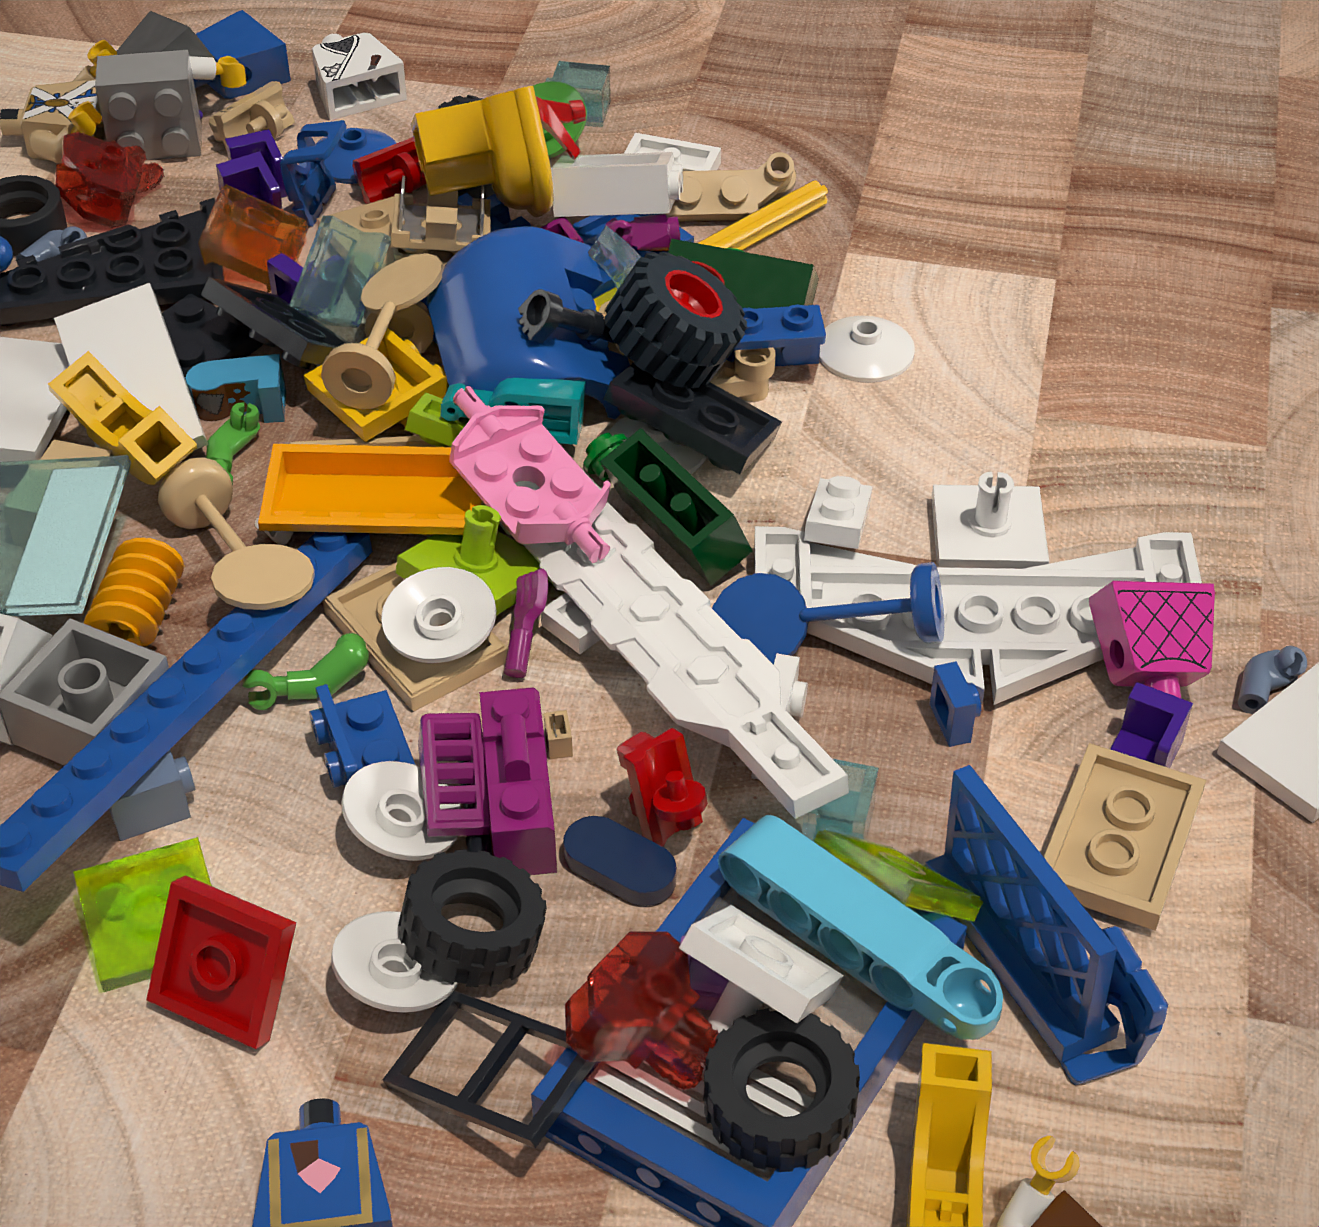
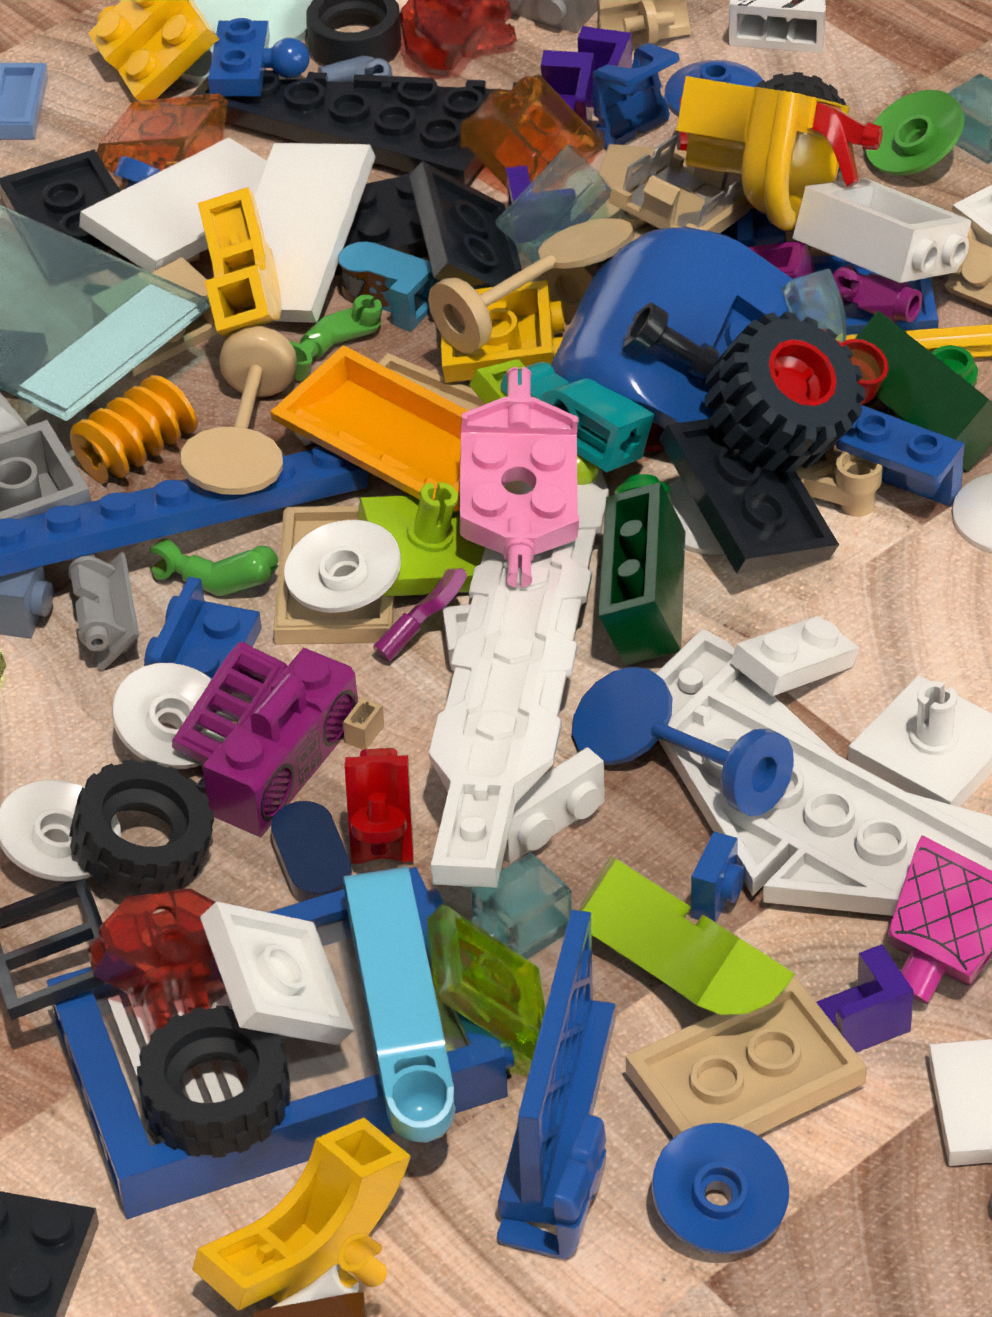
camera: 40 degrees right, 0 degrees up
(251, 752) = (104, 606): none -> light grey hinge
(1015, 767) = (695, 960): none -> lime brick
(1208, 934) = (727, 1161): none -> blue dish

